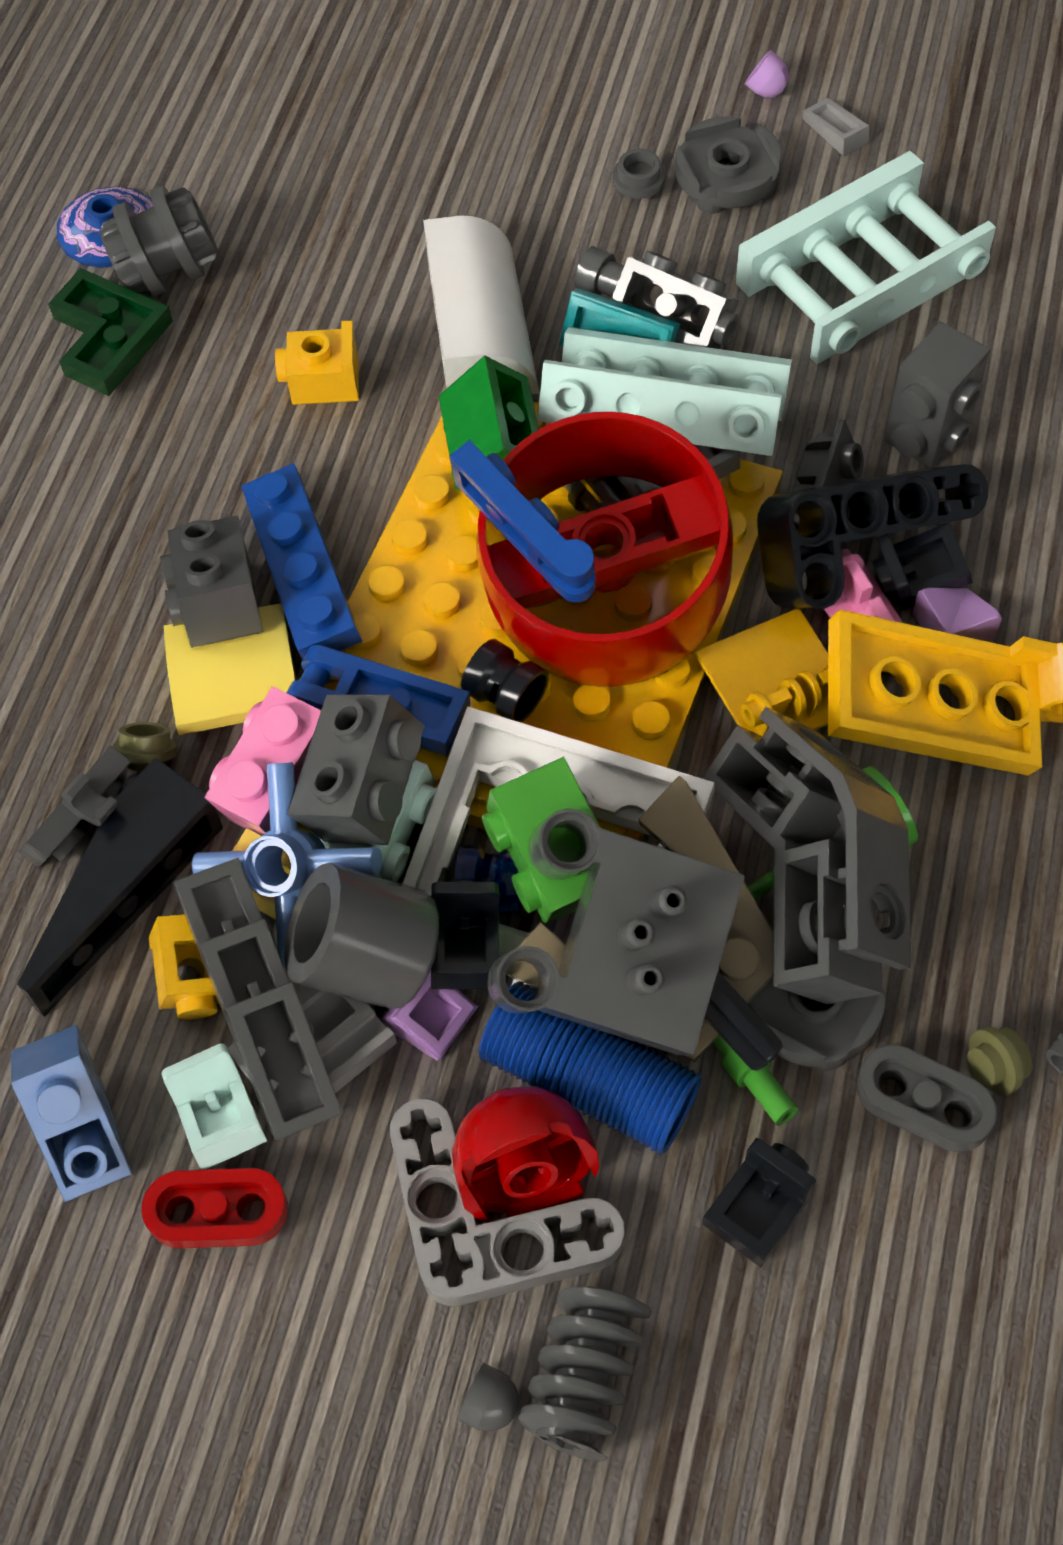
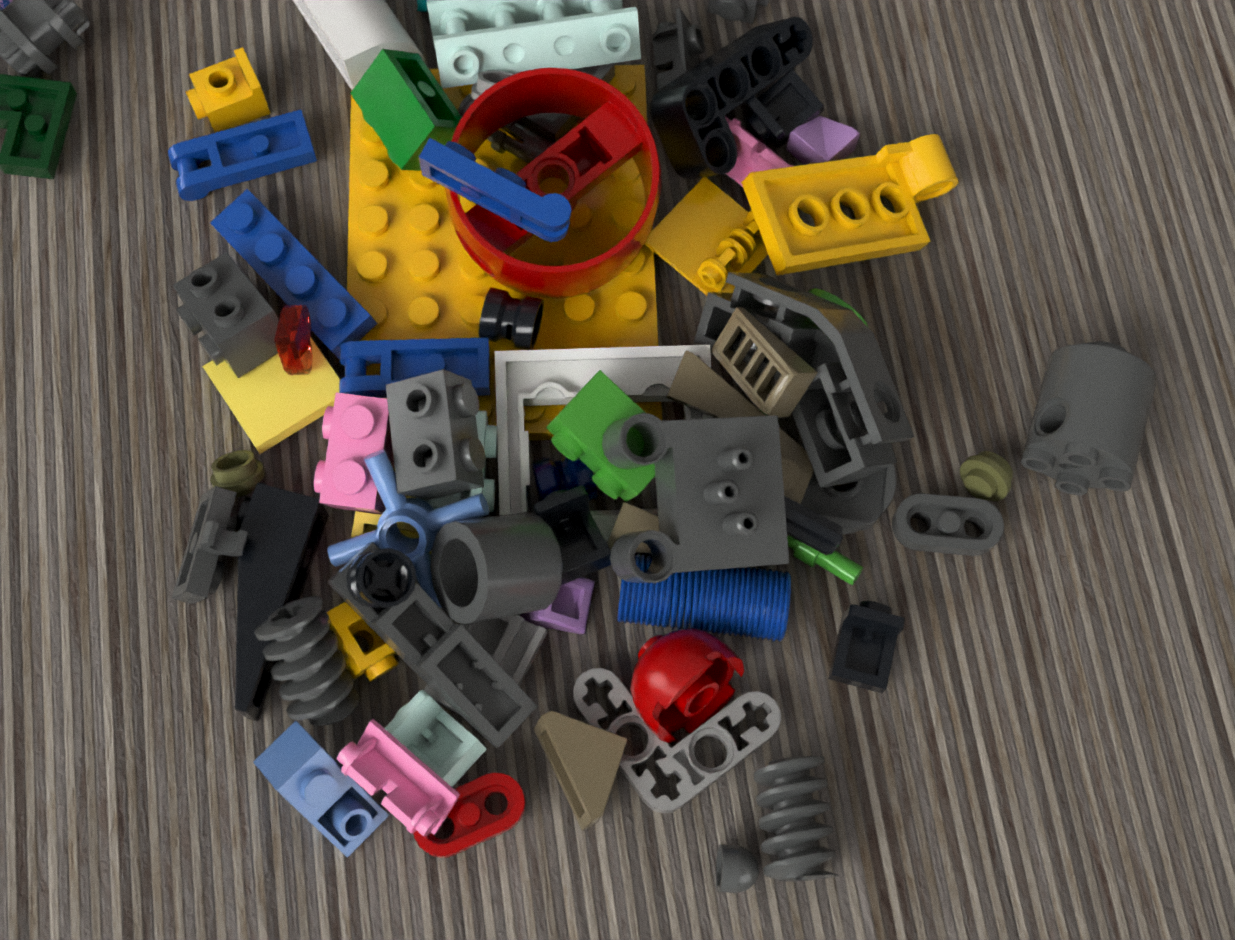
camera: 30 degrees left, 10 degrees up
(117, 965) = (308, 662): none -> dark grey piece
(159, 1152) = (413, 790): none -> bright pink hinge
(230, 886) = (391, 574): none -> black wheel
(261, 624) = (293, 340): none -> clear red tile
(306, 429) = (241, 154): none -> blue plate
(370, 1199) = (583, 762): none -> dark tan slope
(787, 841) = (794, 371): none -> dark tan slope

